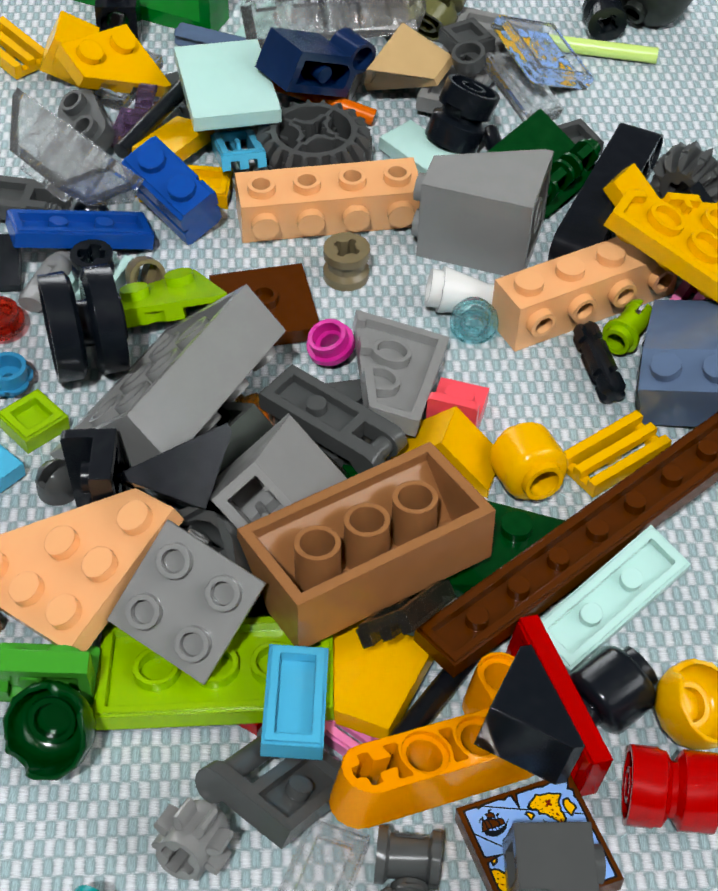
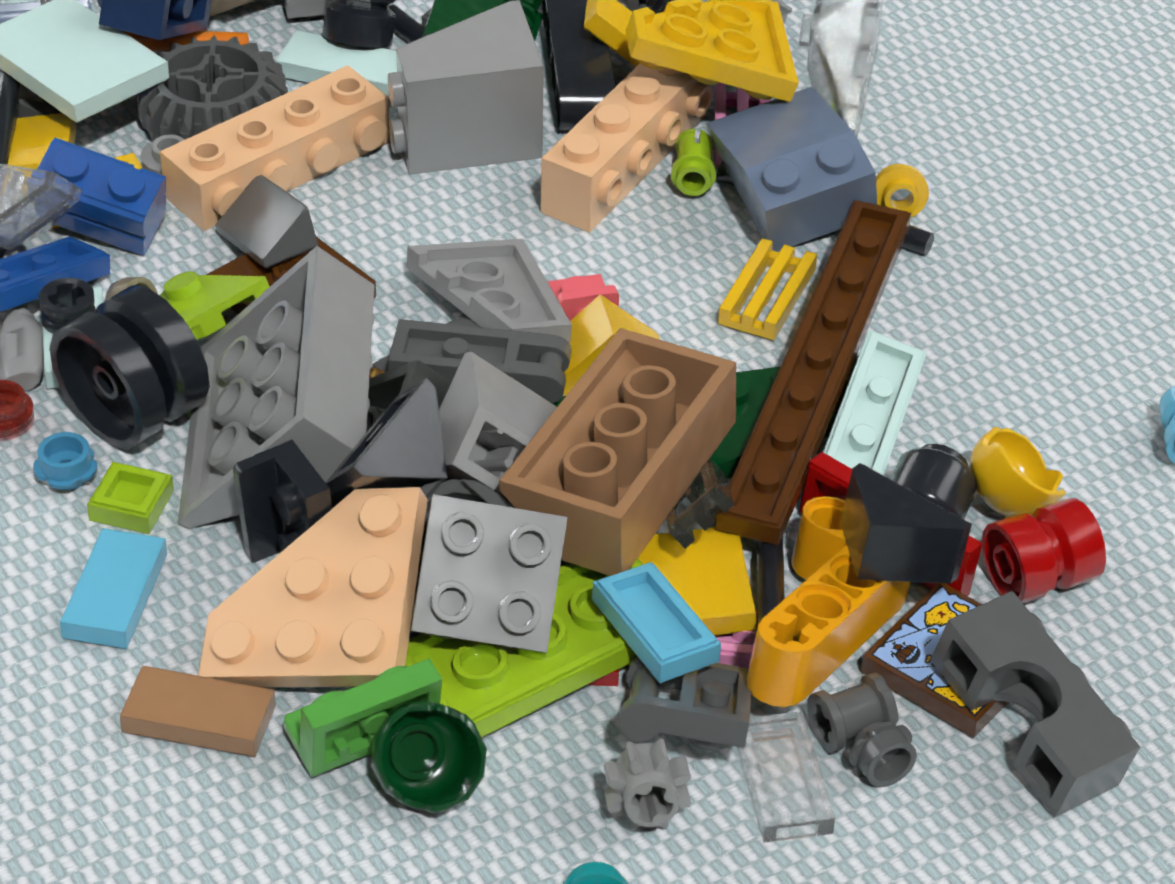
camera: 30 degrees left, 5 degrees down
(54, 483) = (226, 545): dark grey hinge -> none
(237, 154) = (132, 130): medium azure tile -> none
(270, 256) = (268, 223): none -> dark grey slope
(325, 334) = (399, 279): dark pink plate -> none
(346, 261) = (348, 204): dark tan wheel -> none
(449, 287) = (490, 192): white cone -> none
(471, 309) = (522, 207): clear light blue plate -> none
(529, 461) = (700, 319): yellow head -> none
(599, 362) = (688, 208): black axle -> none

